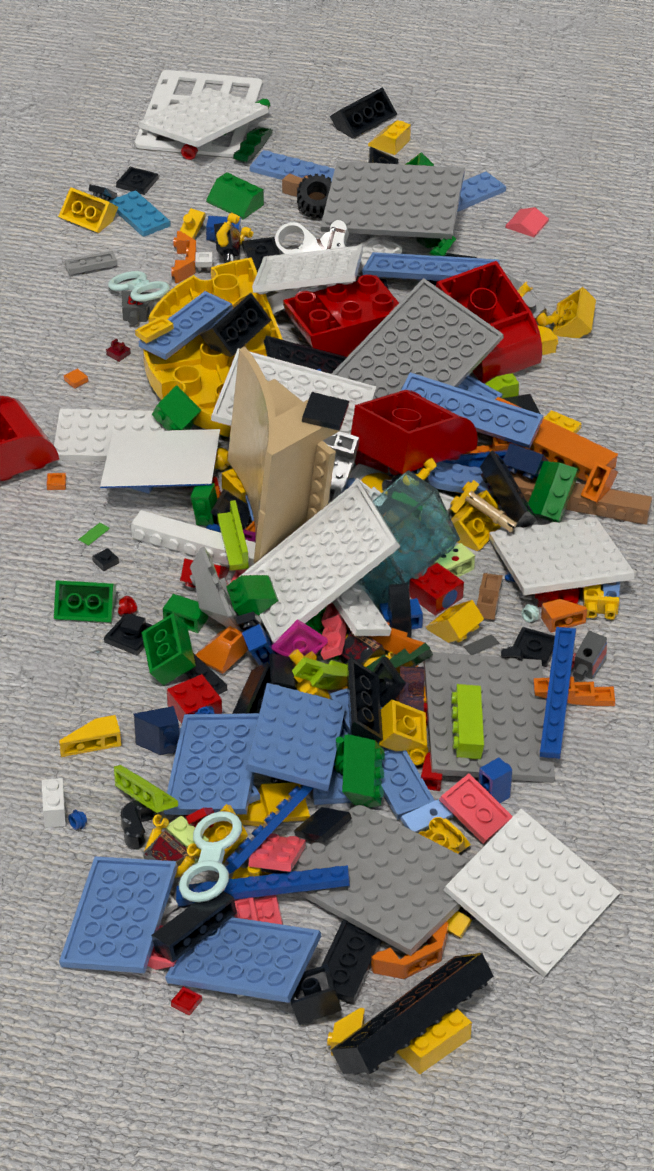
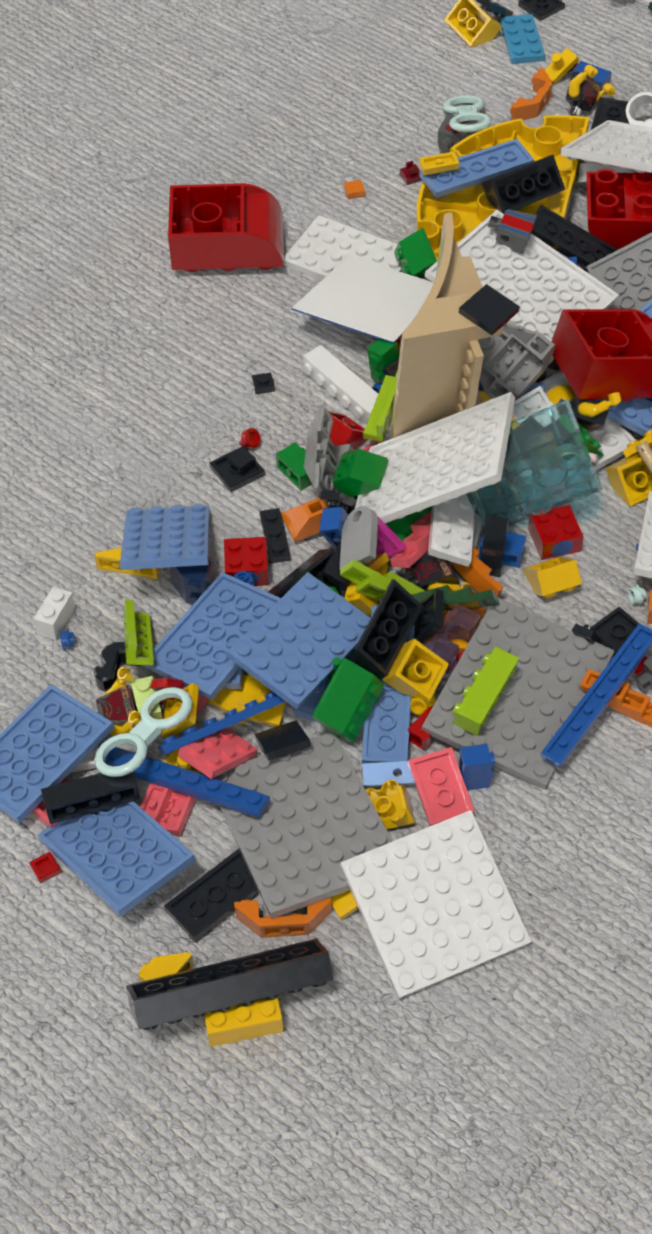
camera: 30 degrees right, 10 degrees up
(56, 481) = (270, 287): orange tile -> none
(84, 601) = (214, 418): green slope -> none
(91, 262) = (442, 75): light grey plate -> none
(94, 533) = (271, 353): bright green sticker -> none
(117, 703) = (165, 537): none -> medium blue plate
(168, 649) = (253, 498): green brick -> none
(203, 259) = (549, 105): white tile -> none
(236, 196) = (624, 48): green slope -> none
(268, 357) = (513, 229): none -> dark grey torso
(290, 643) = (359, 536): none -> light grey tile
(315, 995) = (156, 918): black slope -> none
(458, 561) = (593, 510): yellowish green brick -> none
(481, 644) = (567, 609): dark grey sticker -> none
(489, 595) = (605, 559): medium nougat slope -> none

